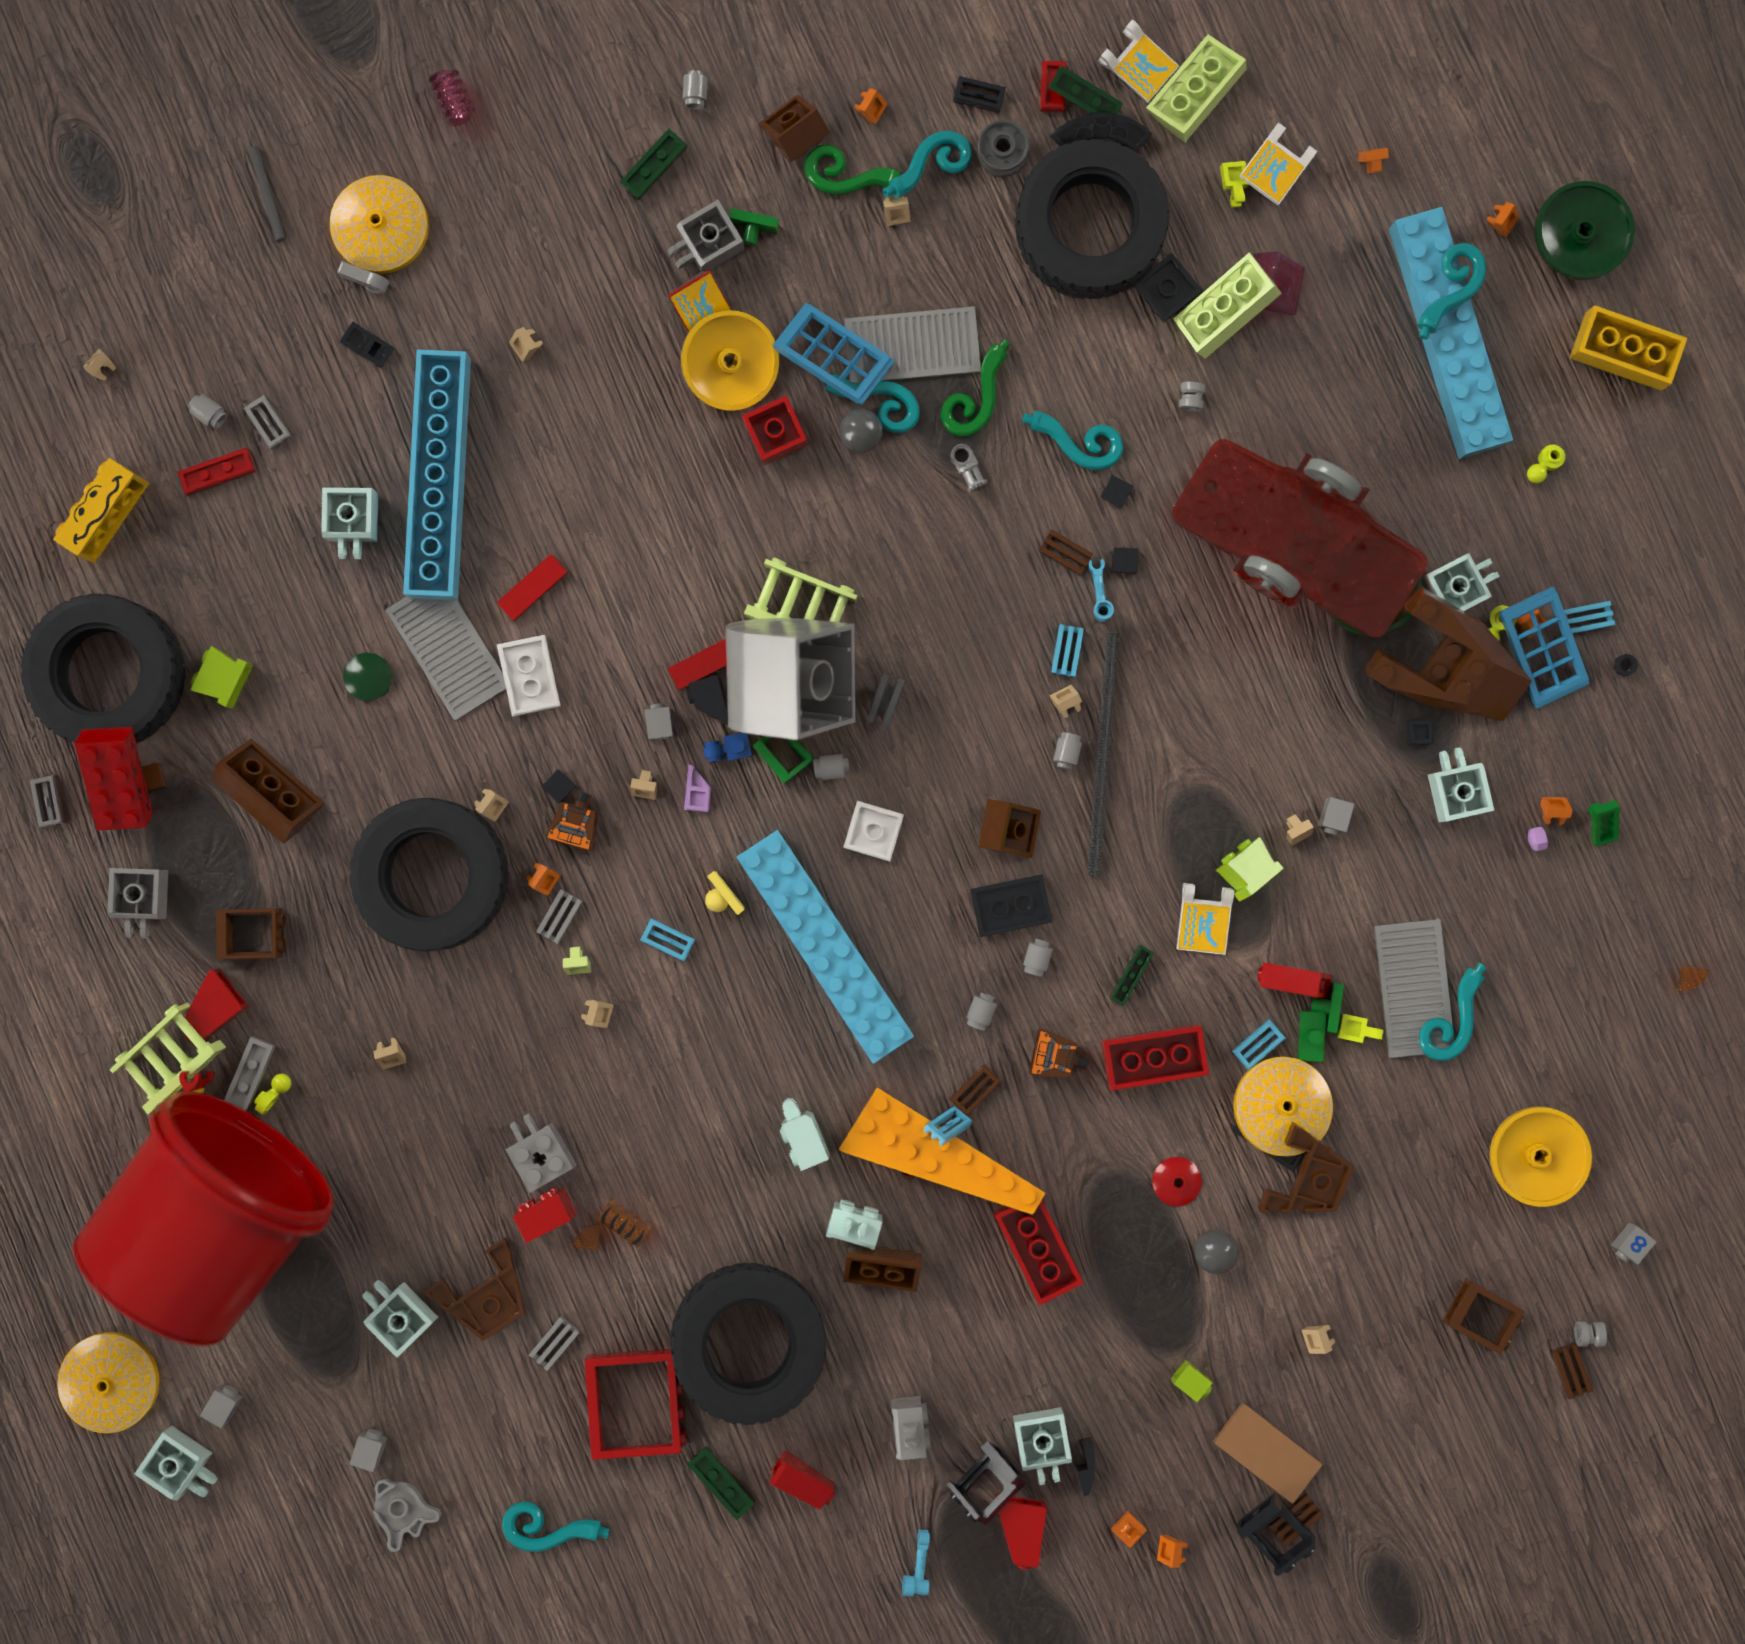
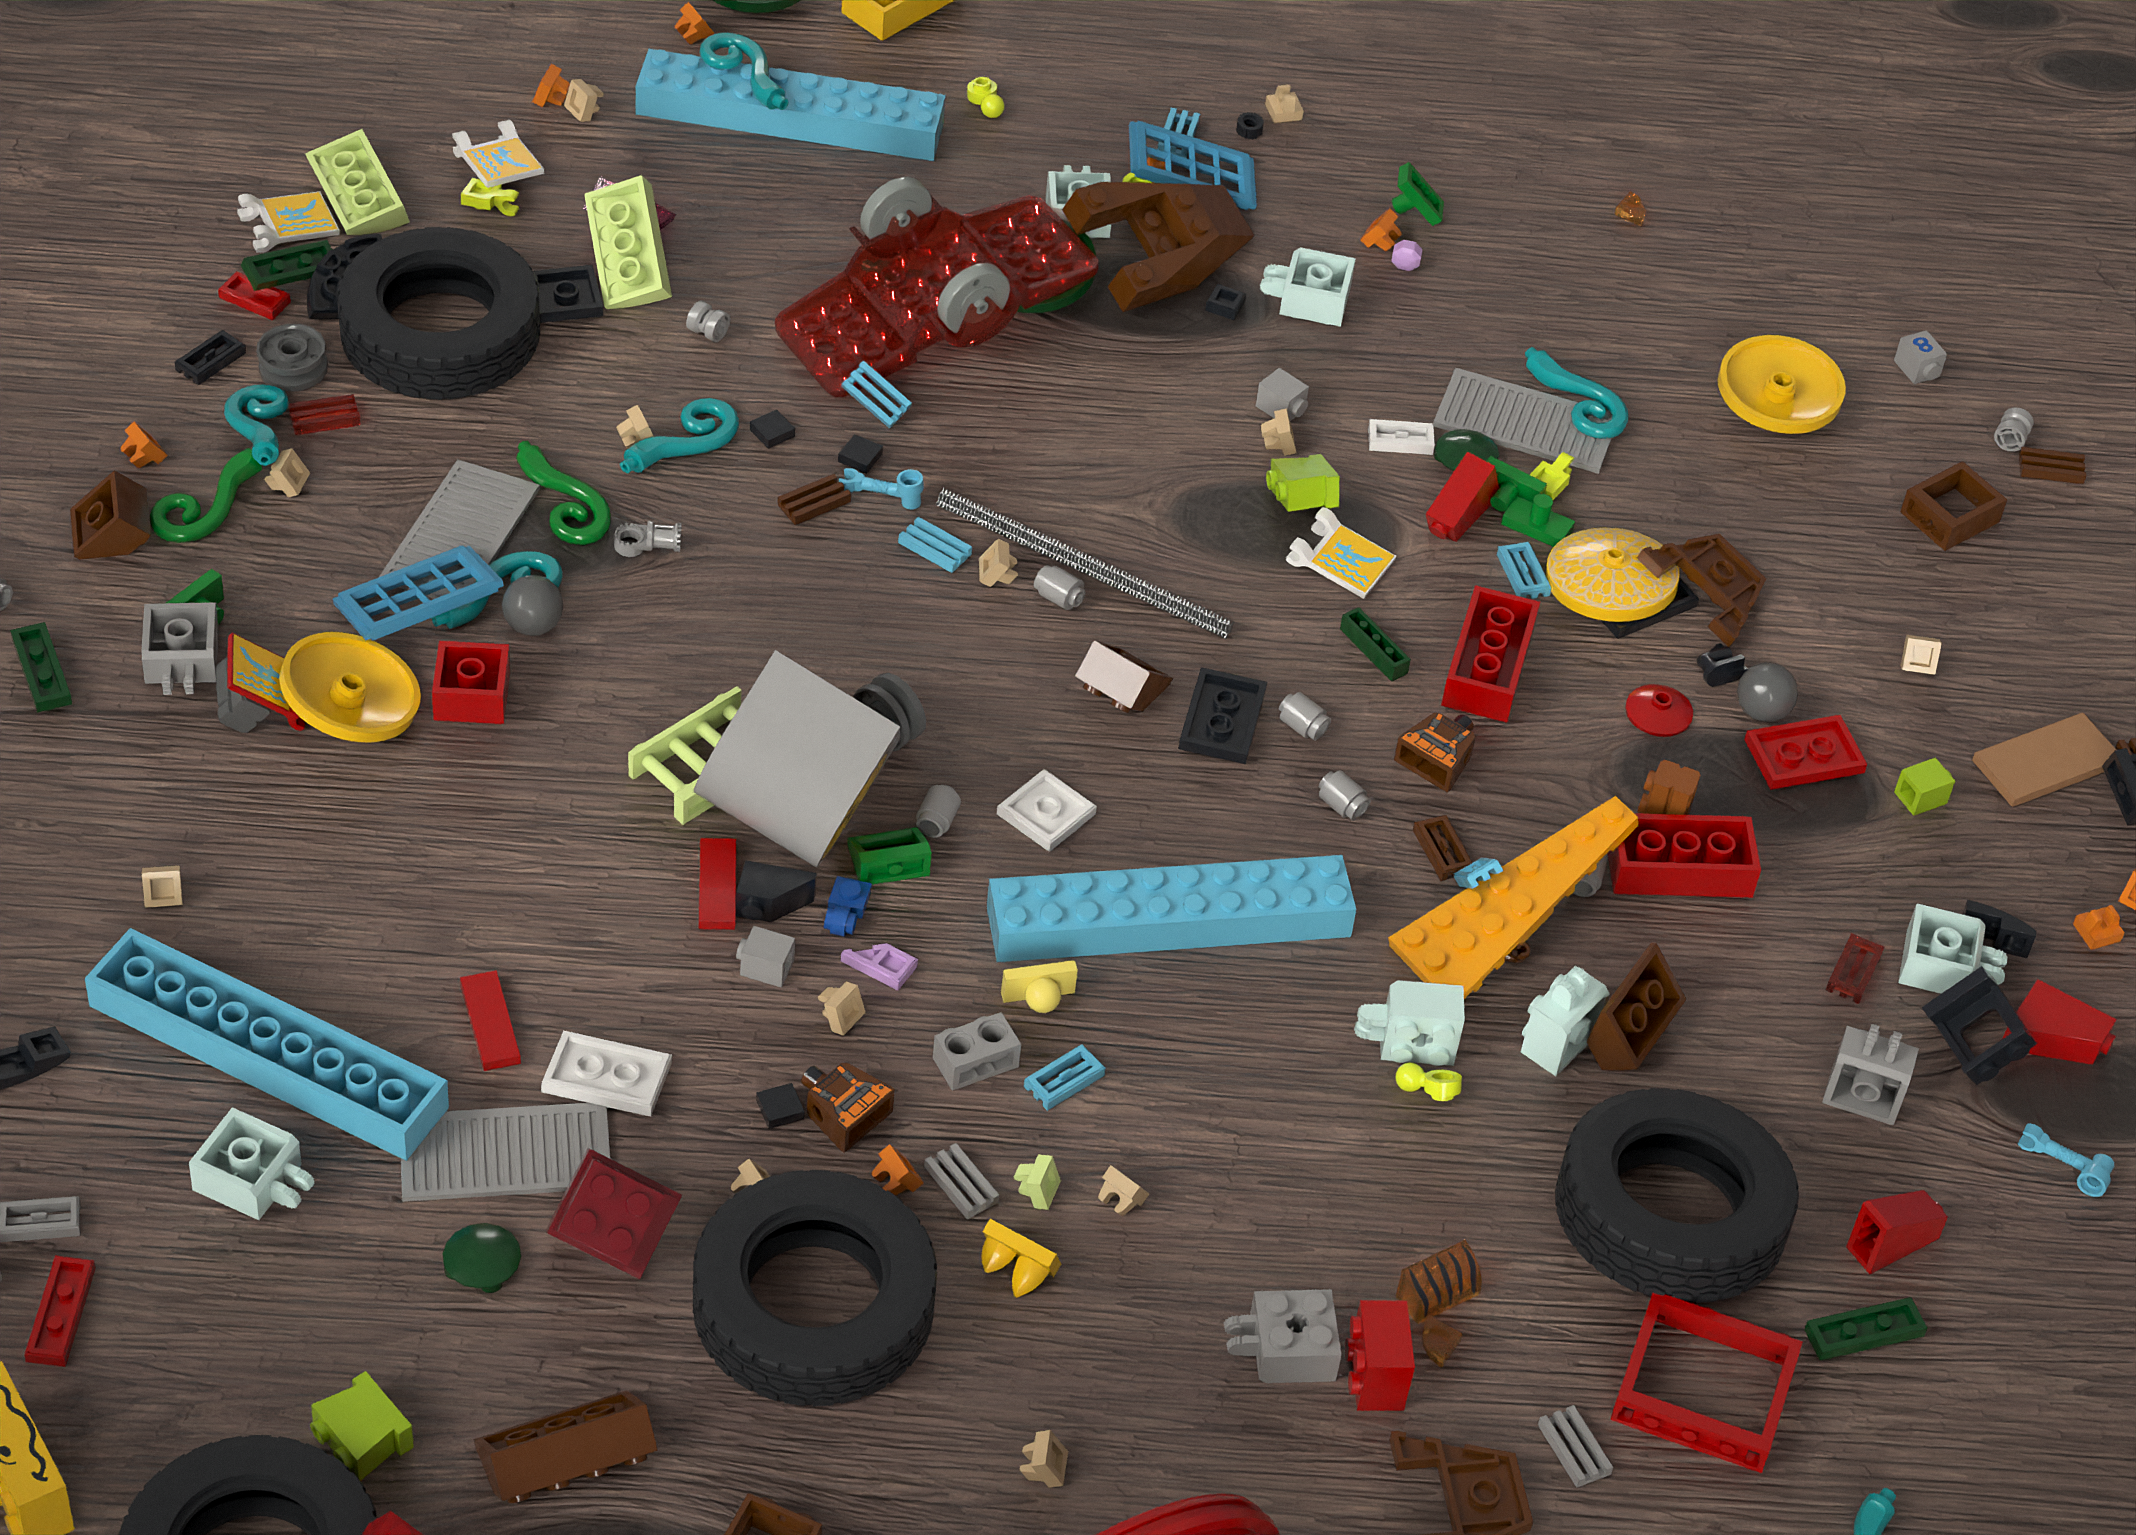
camera: 70 degrees left, 40 degrees down
(413, 736) = (613, 1213): none -> dark red piece
(522, 982) = (1033, 1260): none -> yellow tile
(650, 885) = (976, 1051): none -> light grey brick
(775, 1146) = (1440, 1084): none -> neon yellow plate
(972, 189) = (324, 414): none -> clear red tile
(1010, 1394) = (1846, 987): none -> clear red tile
(1061, 407) = (634, 428): none -> tan tile
(1078, 1222) = (1669, 790): none -> dark orange brick
(1171, 542) = (856, 376): none -> medium azure tile
(1183, 1292) = (1805, 752): none -> red plate
(1237, 1197) = (1721, 666): none -> black piece
(1329, 895) = (1401, 436): none -> white tile
(1354, 961) = (1455, 444): none -> dark green dish
(1373, 188) = (582, 99): none -> tan tile
(1662, 680) = (1284, 105): none -> tan tile

